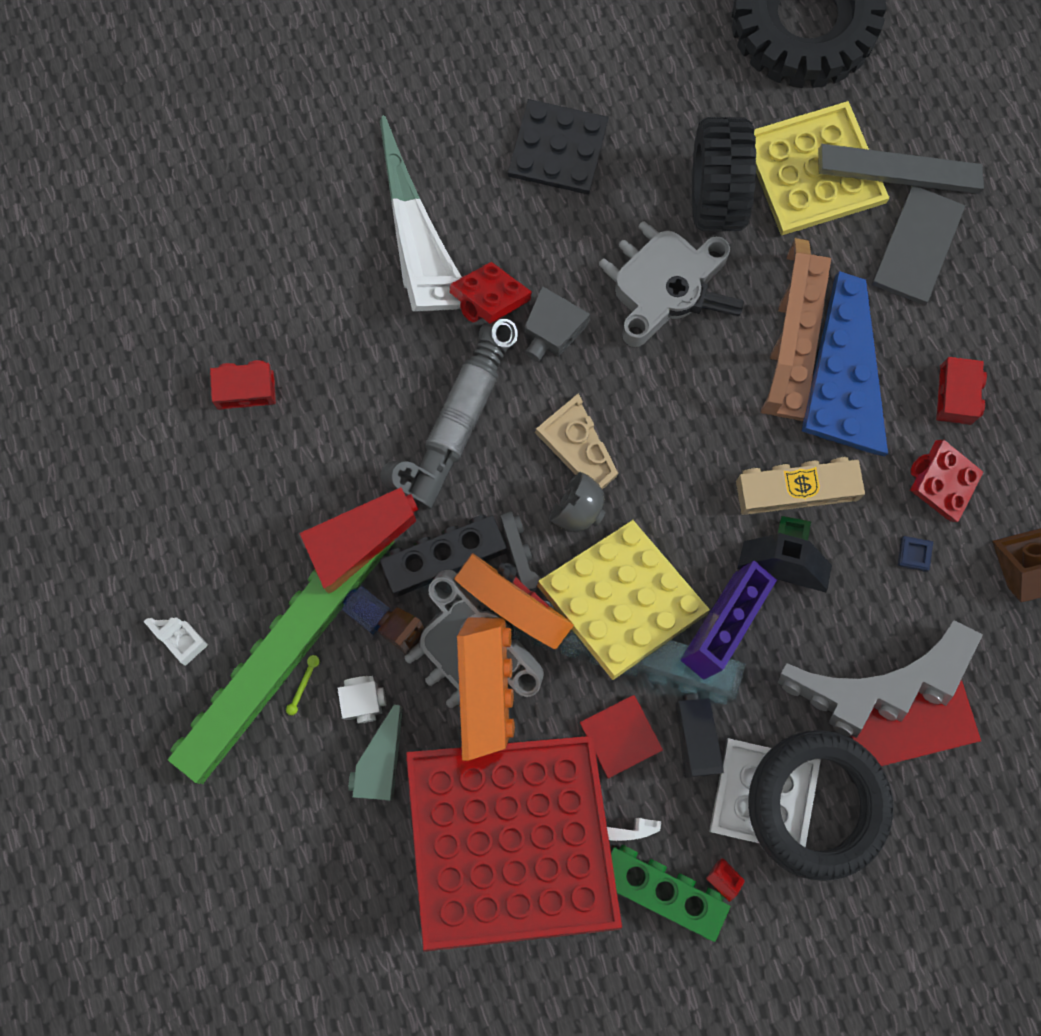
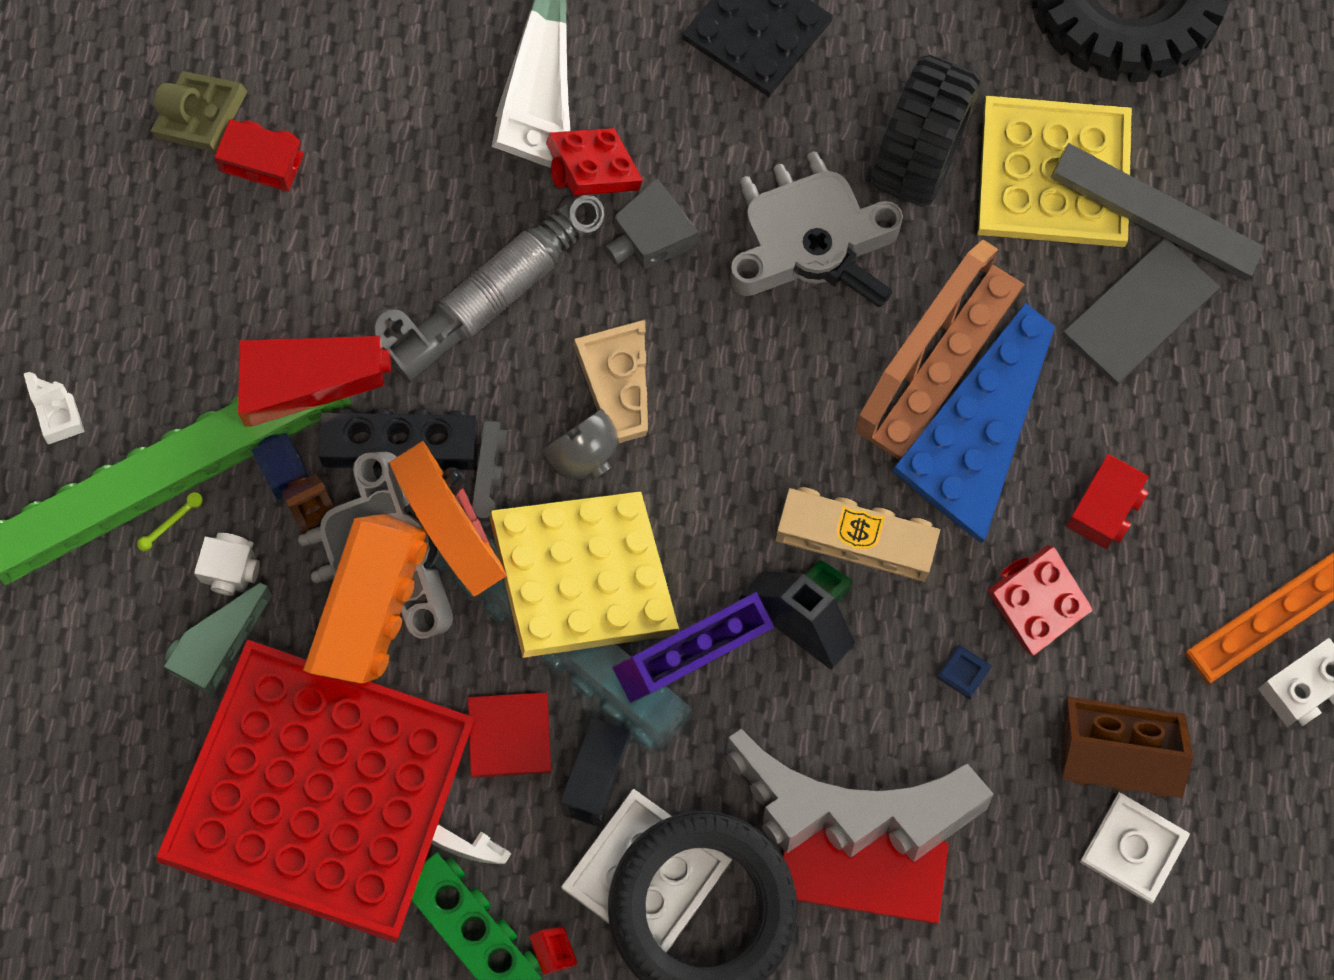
camera: 20 degrees right, 5 degrees down
(181, 371) = (196, 110): none -> olive plate

